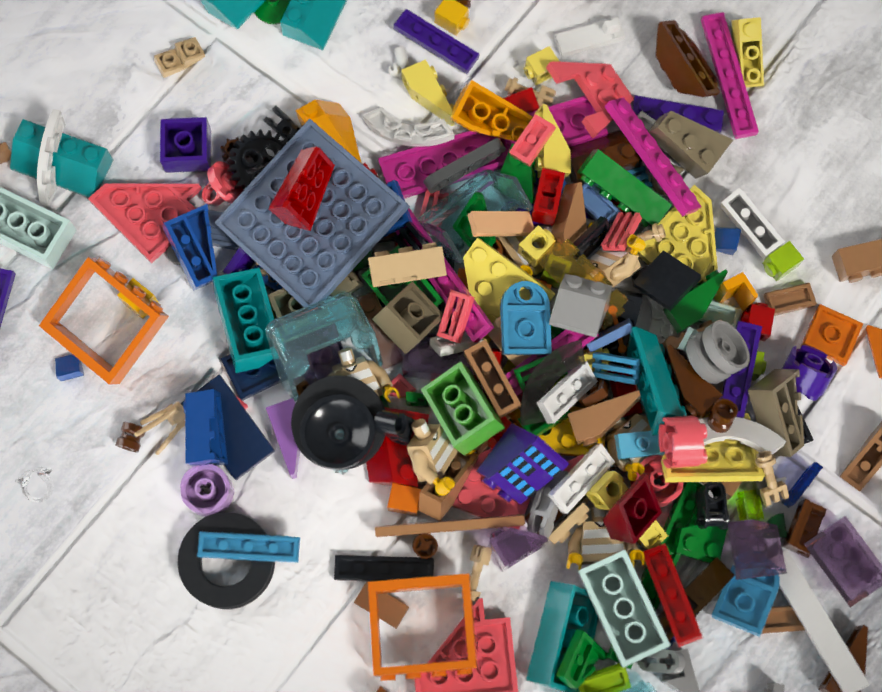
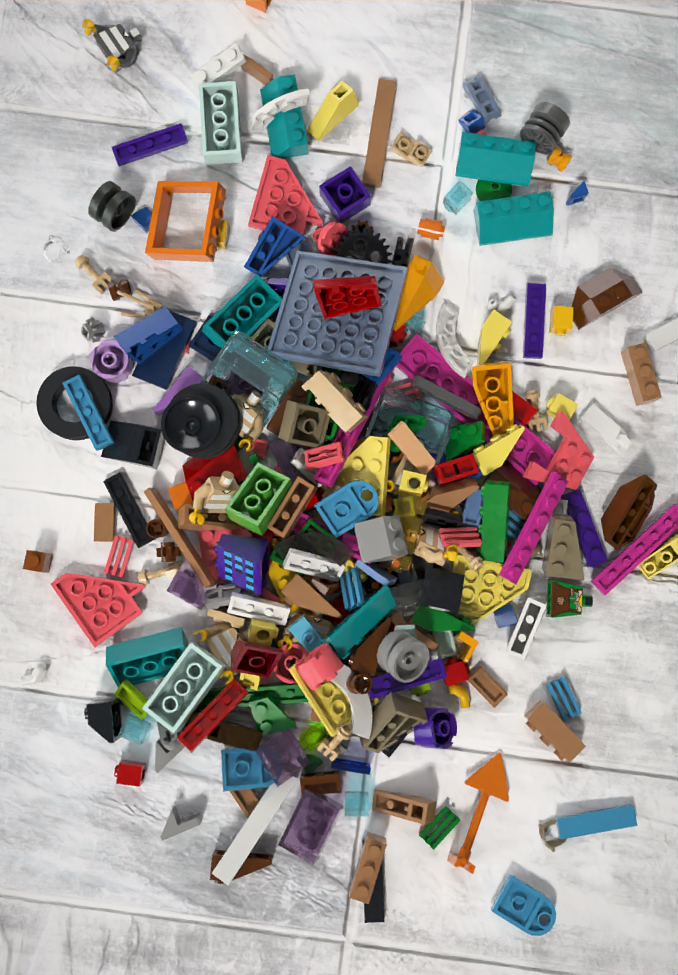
camera: 60 degrees right, 10 degrees up
(33, 390) = (111, 206): none -> pearl dark grey wheel
(71, 461) = (82, 262): none -> tan hinge
(87, 106) = (334, 109): none -> light yellow slope
(139, 76) = (379, 133): none -> medium nougat tile
(157, 492) = (92, 330): none -> light grey gear
(261, 40) = (457, 197): none -> clear light blue brick
(276, 83) = (431, 228): none -> orange brick
(315, 518) = (134, 444): none -> black slope
(368, 154) = (415, 324): none -> clear light blue cone
(394, 426) = (219, 459): black piece -> none
(416, 584) = (76, 584): orange window -> none
(445, 625) = (112, 553): none -> coral tile
(458, 549) = (168, 552): none -> reddish brown gear
(532, 140) = (489, 434): coral plate -> none
(580, 659) = (136, 676): green wing -> none
(712, 511) = (293, 711): black piece -> none
(741, 170) = (565, 599): none -> torso
(782, 261) = (511, 666): lime brick -> none
(785, 327) = (461, 692): none -> yellow arm
(832, 334) = (477, 731): orange tile -> none
(842, 231) = (570, 713): none -> dark azure tile
(846, 500) = (357, 803): none -> clear light blue brick

